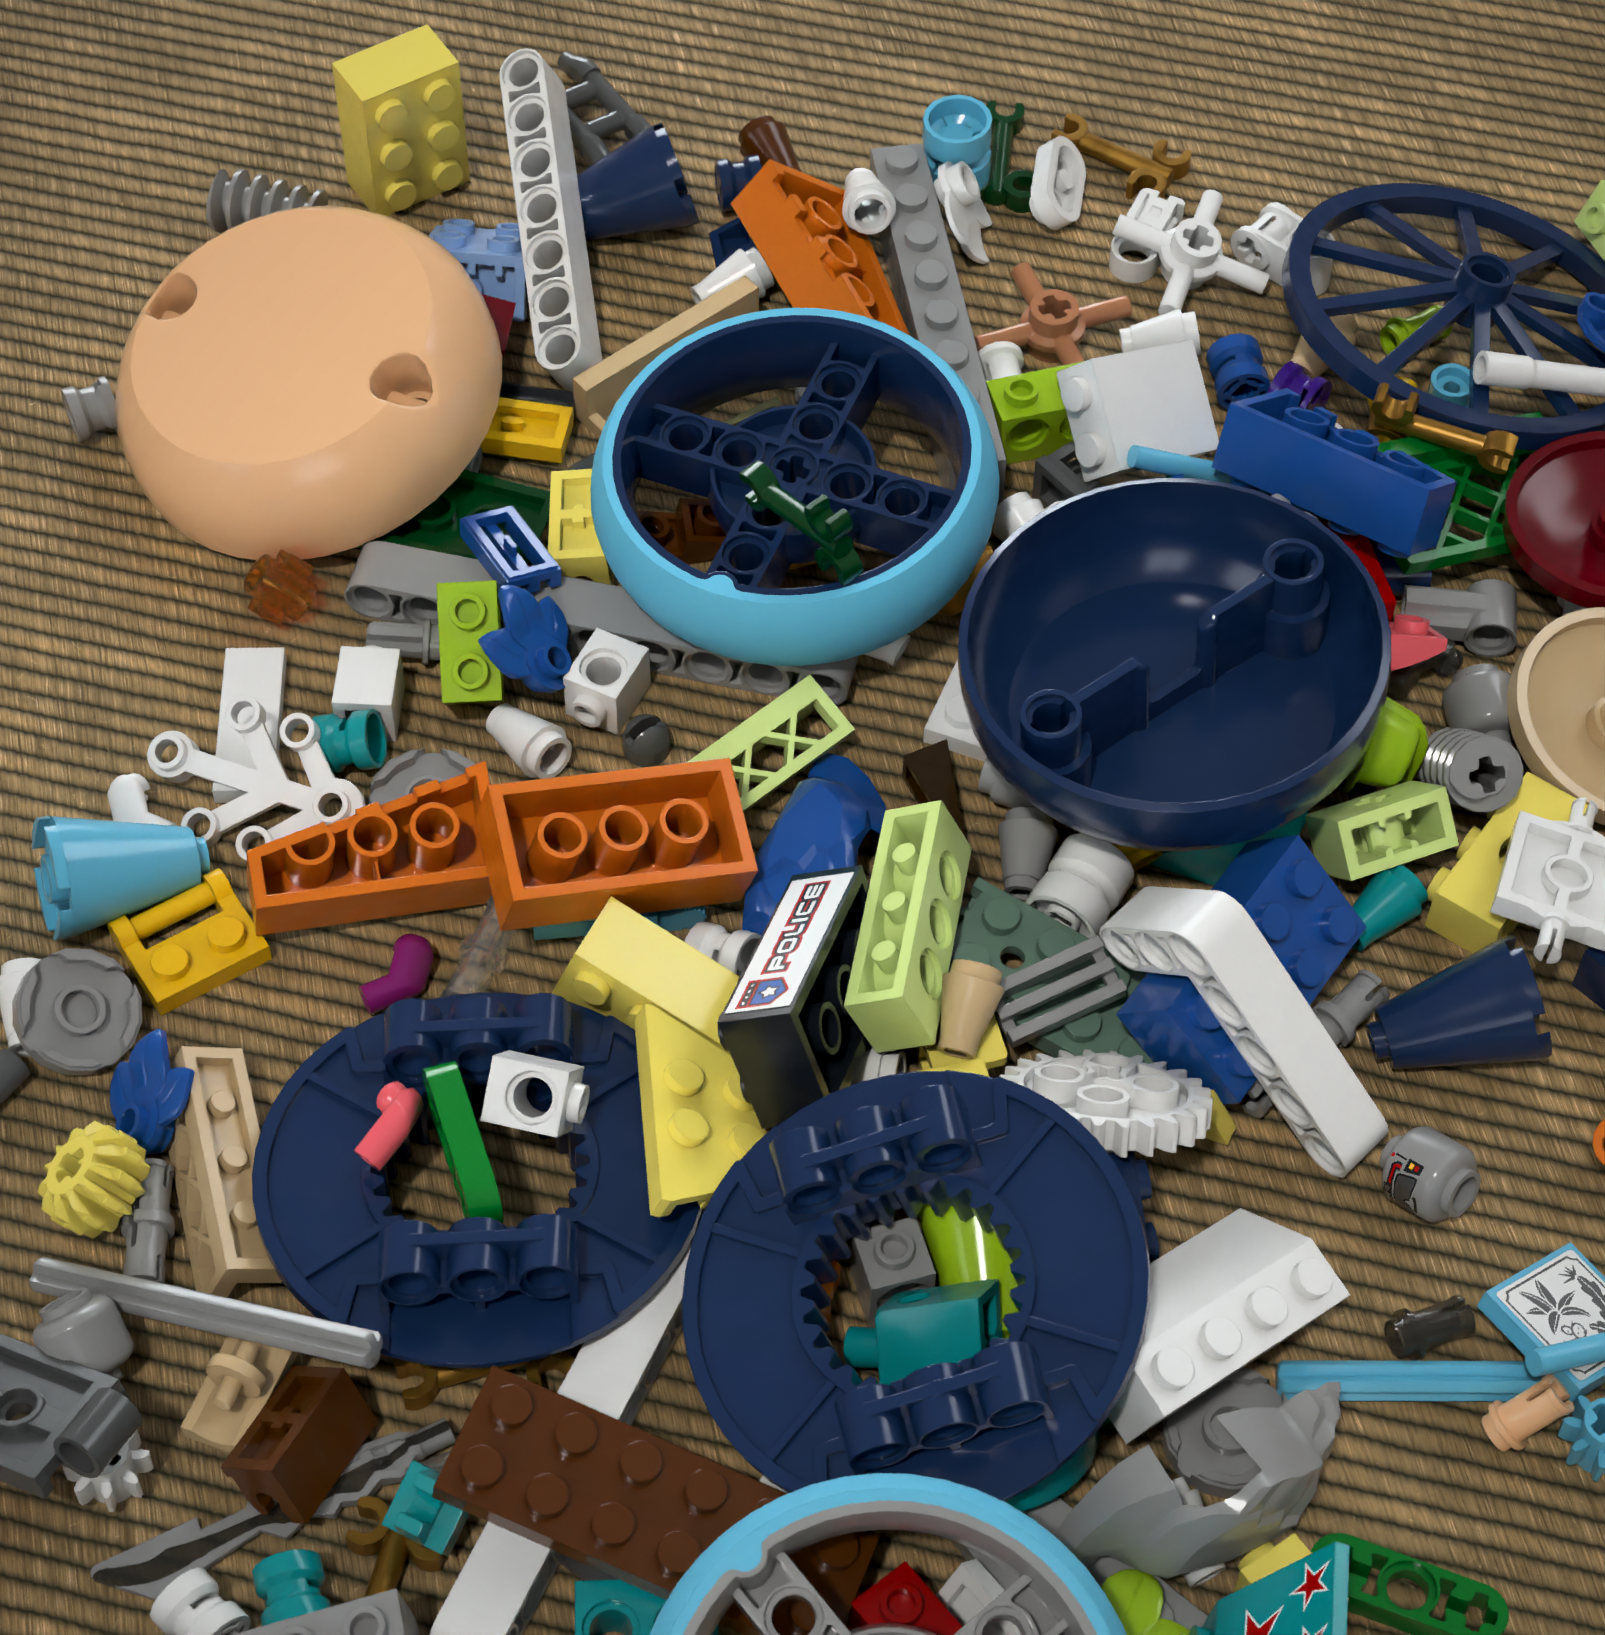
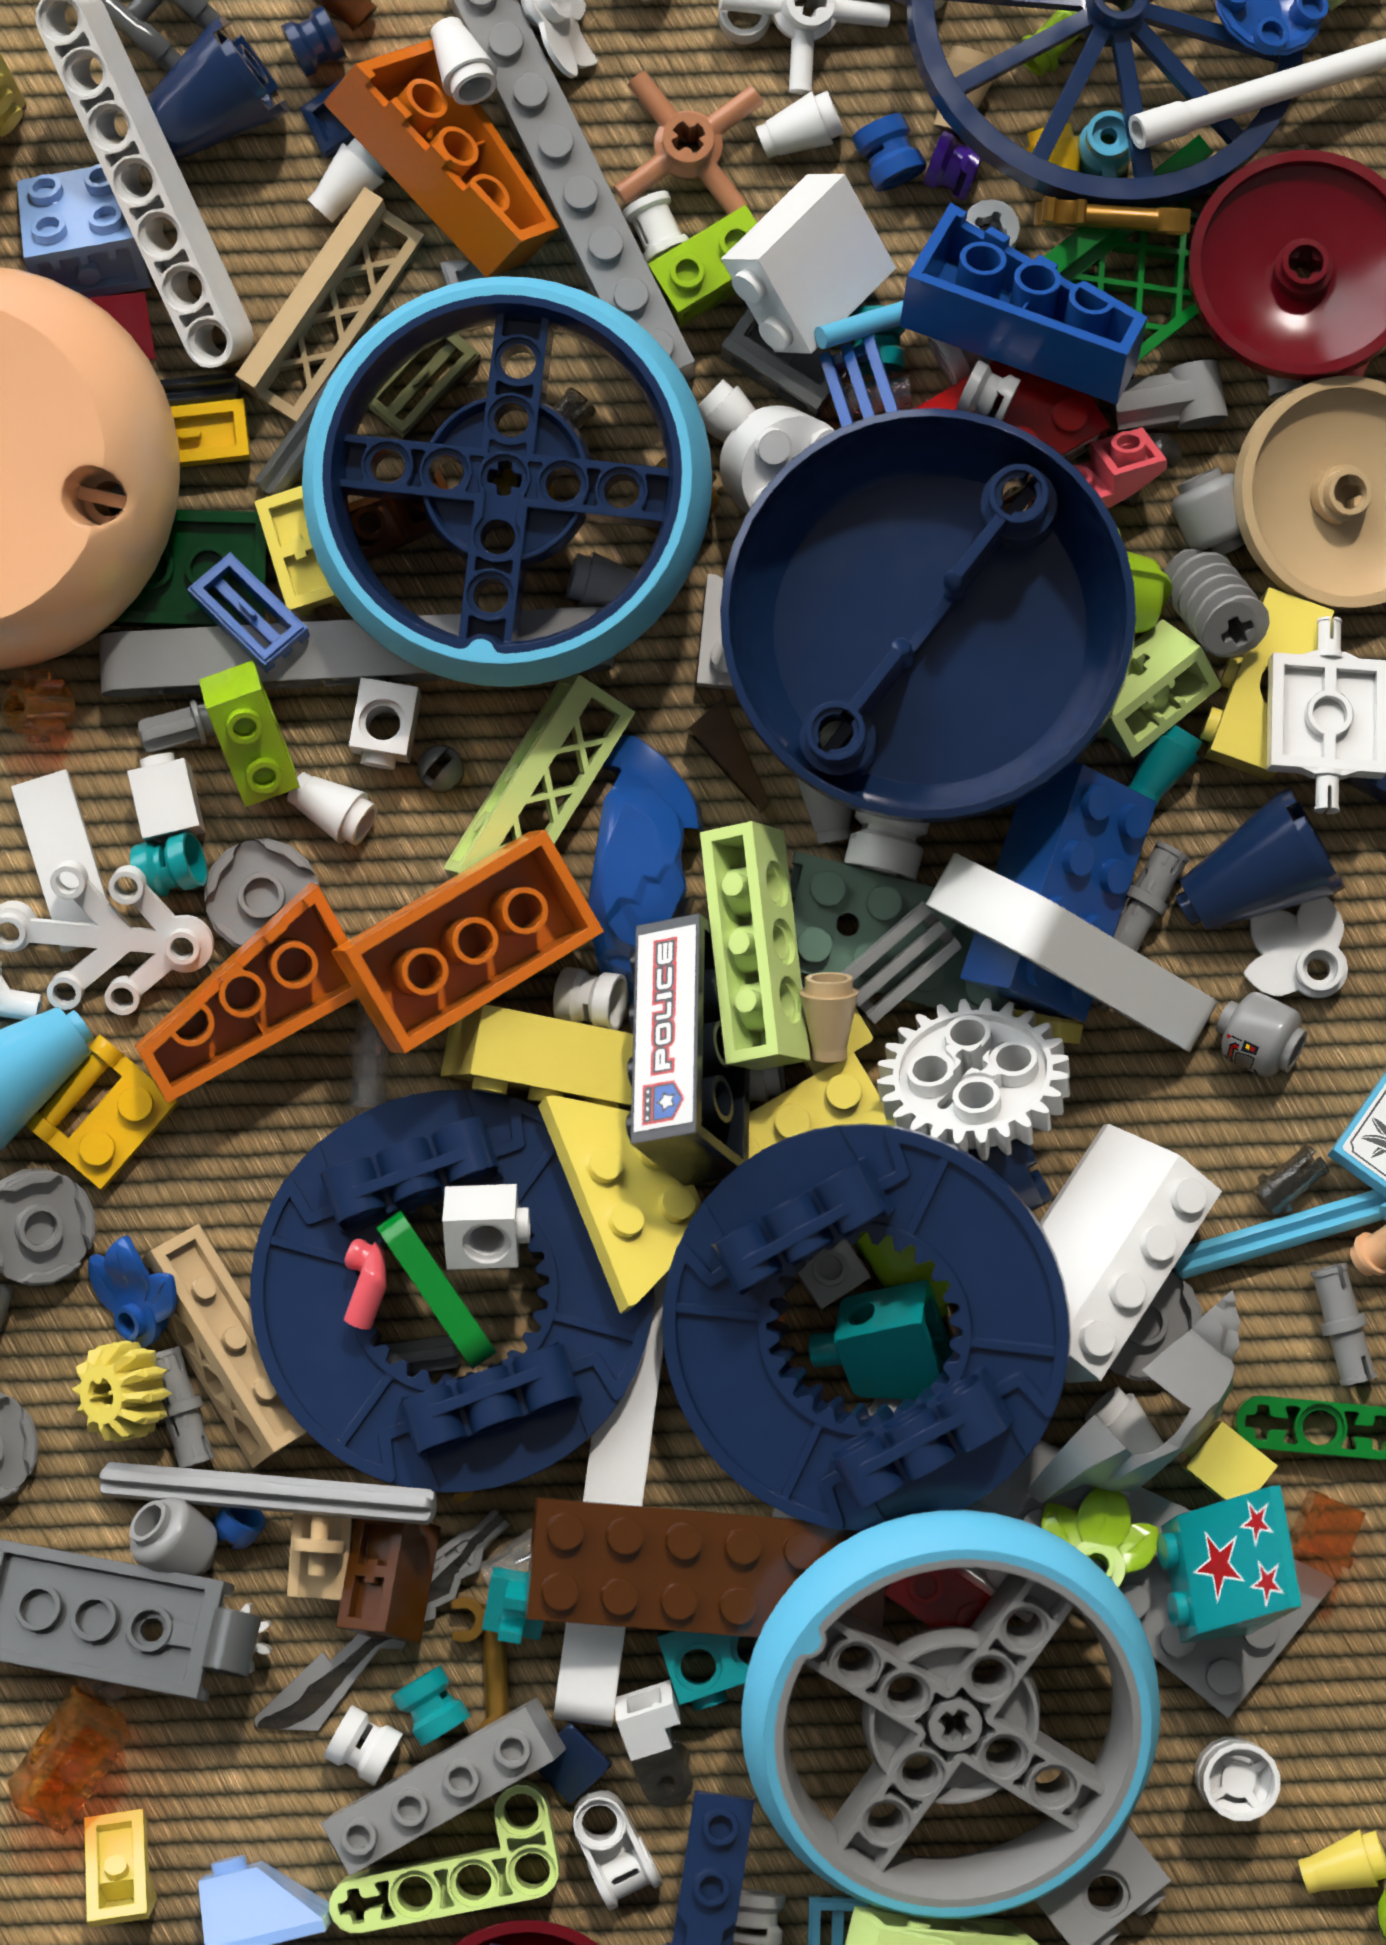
camera: 15 degrees left, 30 degrees up
(161, 1354) = (239, 1526): none -> blue hinge
(406, 975) = (310, 1091): magenta arm -> none
(532, 641) = (308, 713): blue plate -> none
(813, 520) = (559, 582): dark green bar -> none
(1458, 1489) = (1343, 1324): none -> light grey pin
(1479, 1110) = (1291, 943): none -> white plate

